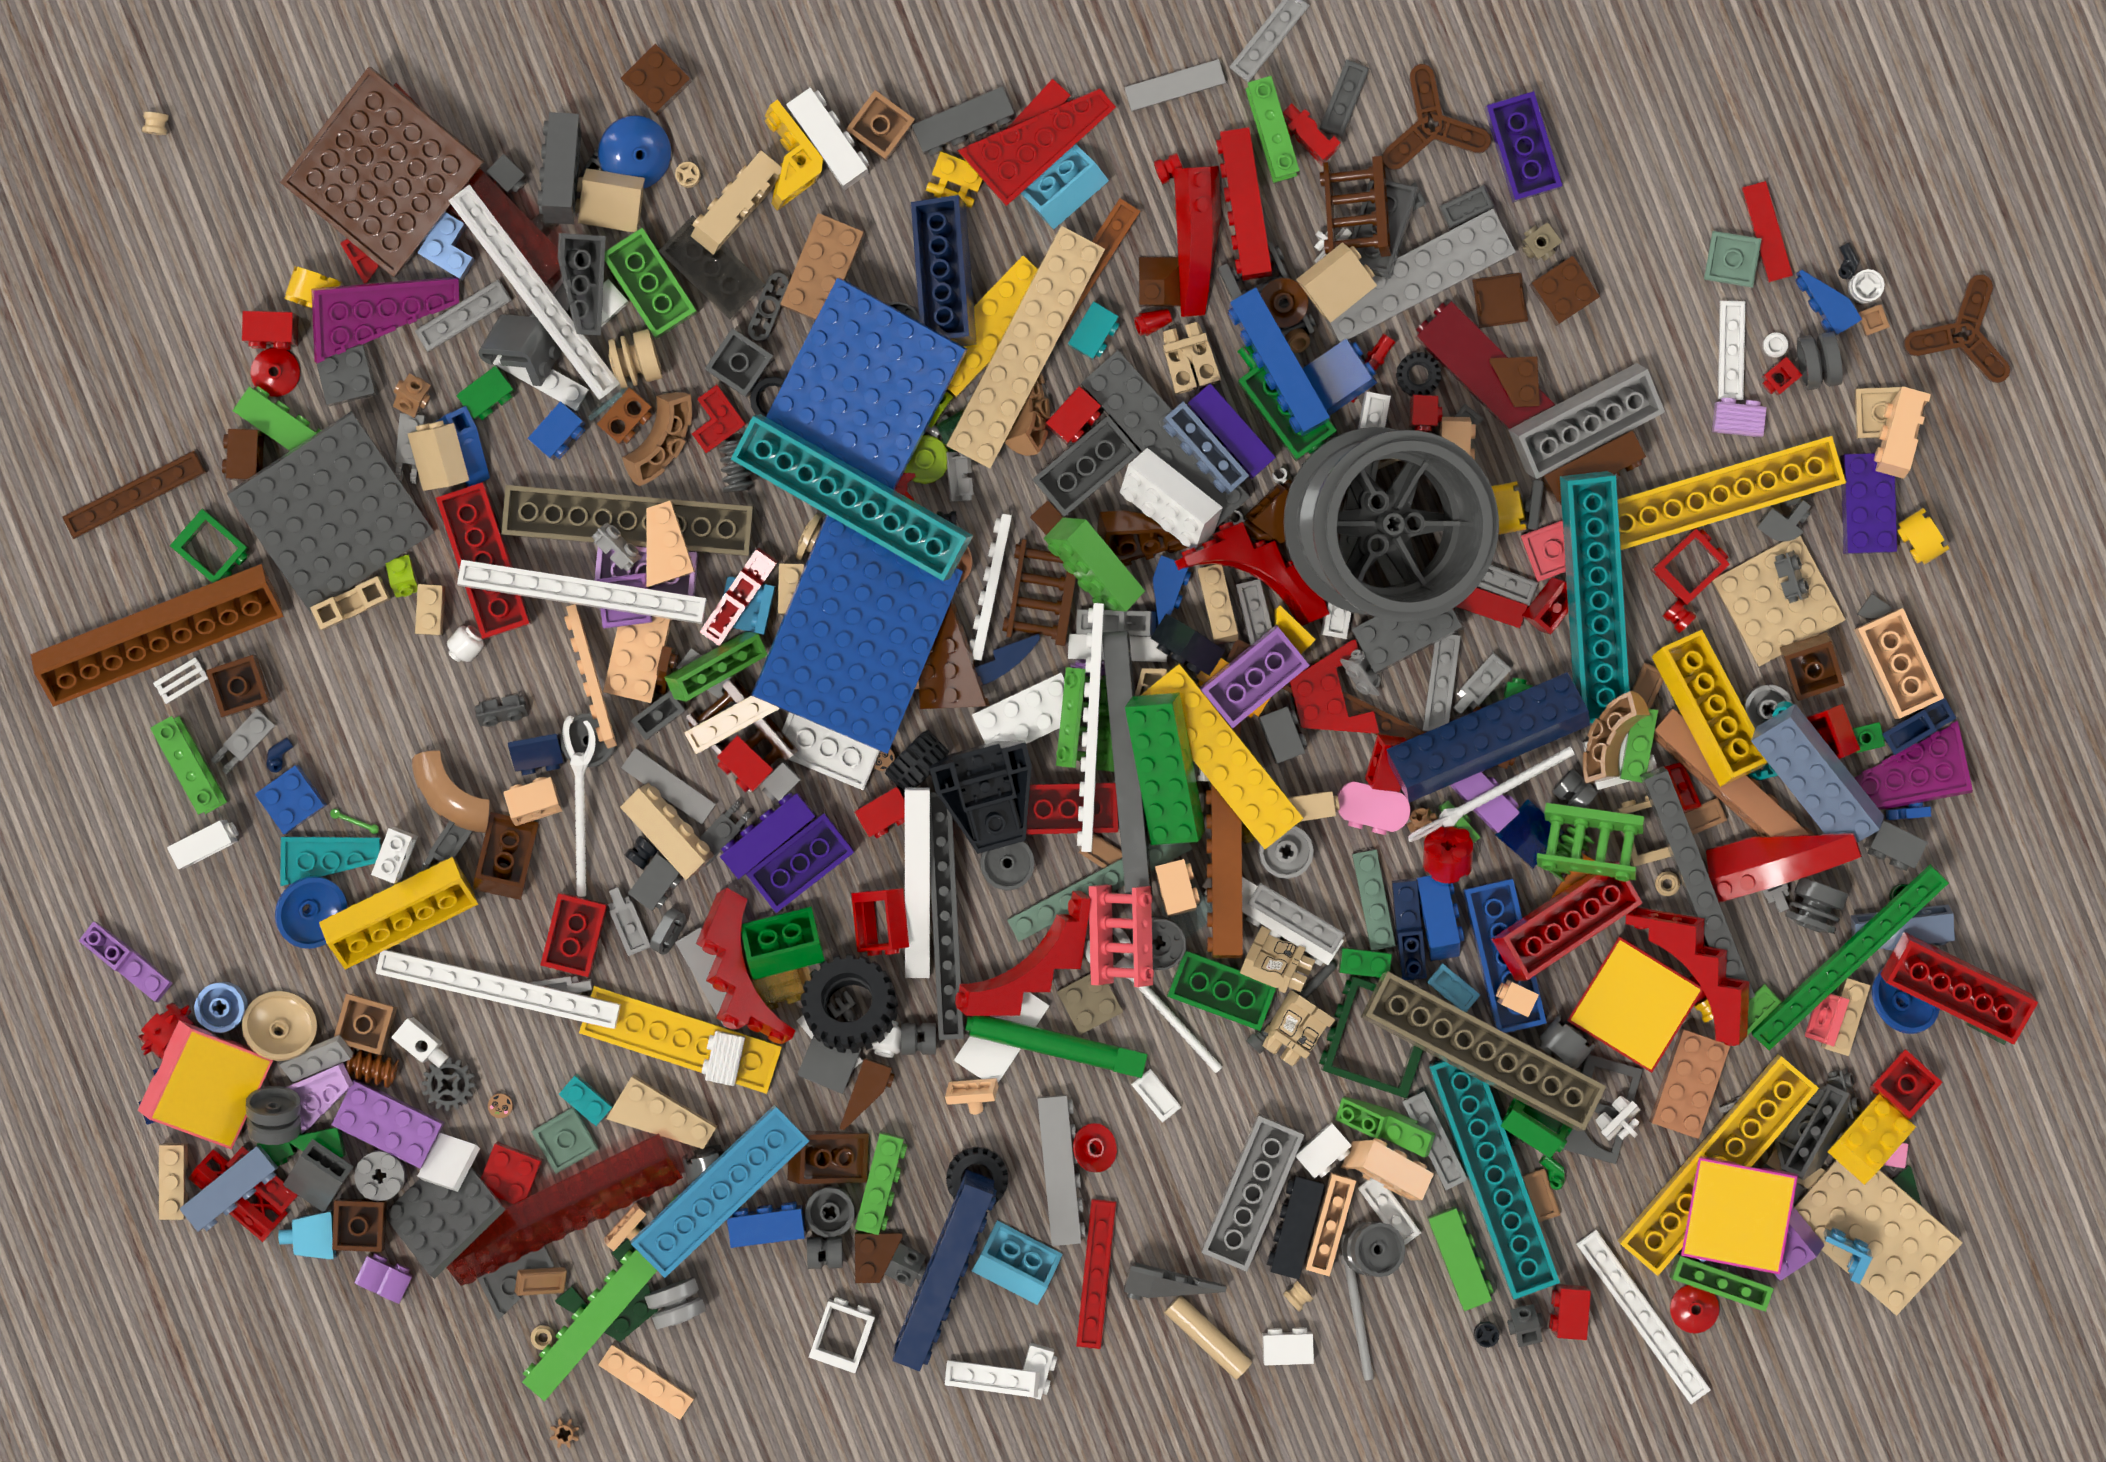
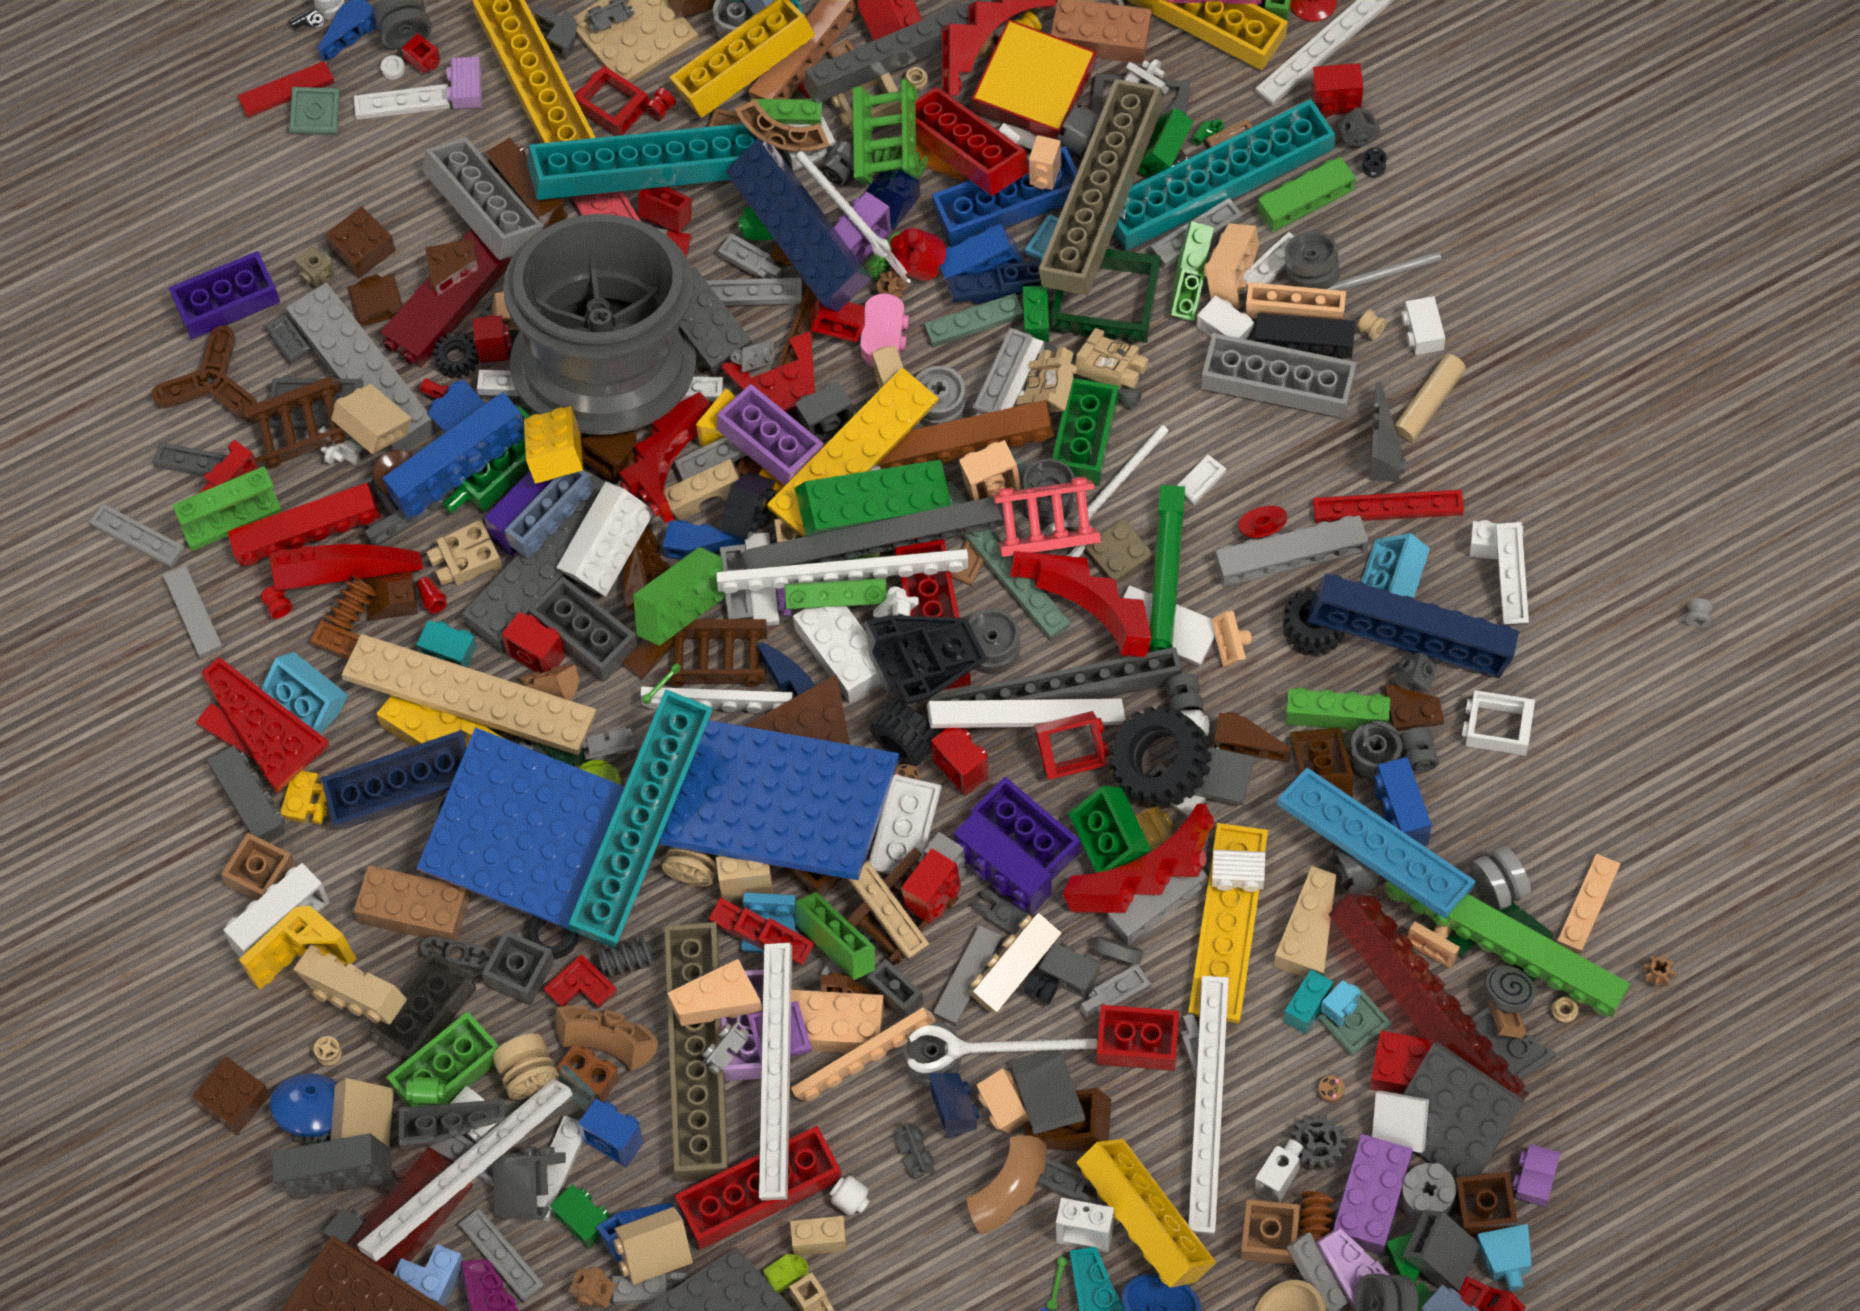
camera: 90 degrees left, 25 degrees down
(530, 841) = (1047, 1090): none -> dark grey tile
(564, 1289) = (1509, 989): none -> dark grey tile
(577, 1130) = (1341, 1002): none -> medium azure brick
(617, 262) = (425, 1090): none -> bright green brick
(996, 519) = (647, 698): none -> bright green hinge
(1046, 772) = (896, 603): none -> white hips
(1149, 243) = (351, 603): none -> dark orange piece
(1269, 460) = (553, 444): none -> yellow brick
(1563, 981) = (1019, 136): none -> white tile

